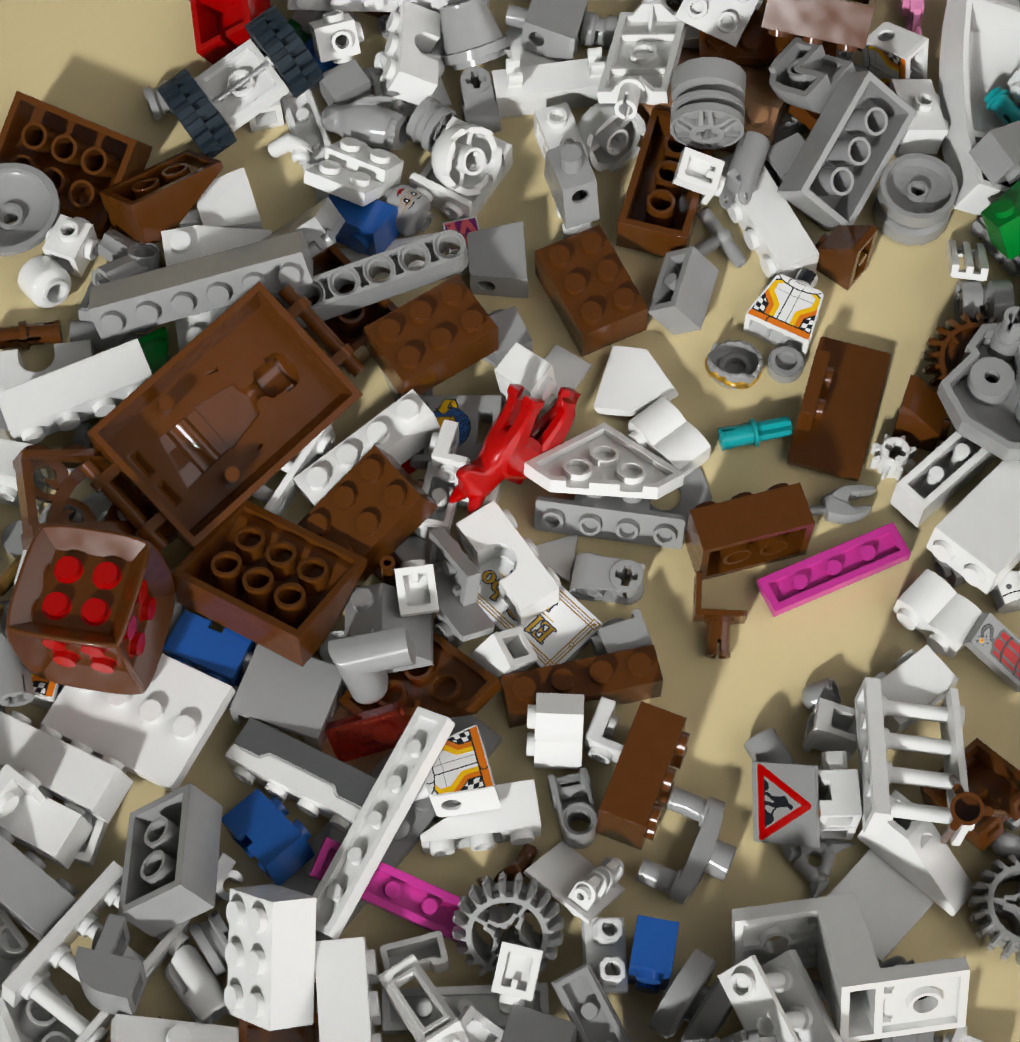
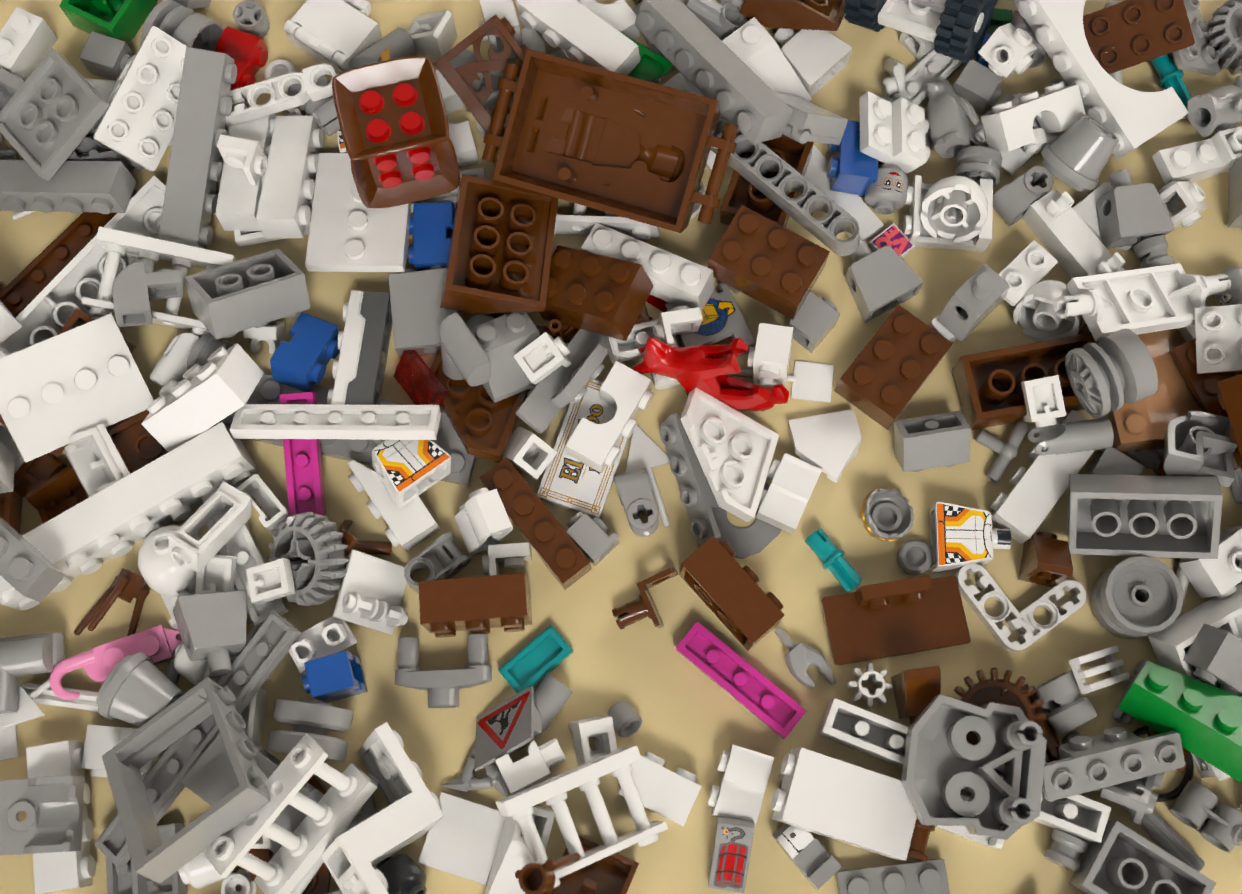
camera: 65 degrees right, 10 degrees up
(722, 755) = (536, 660): none -> teal tile
(887, 303) = (1020, 620): none -> white beam

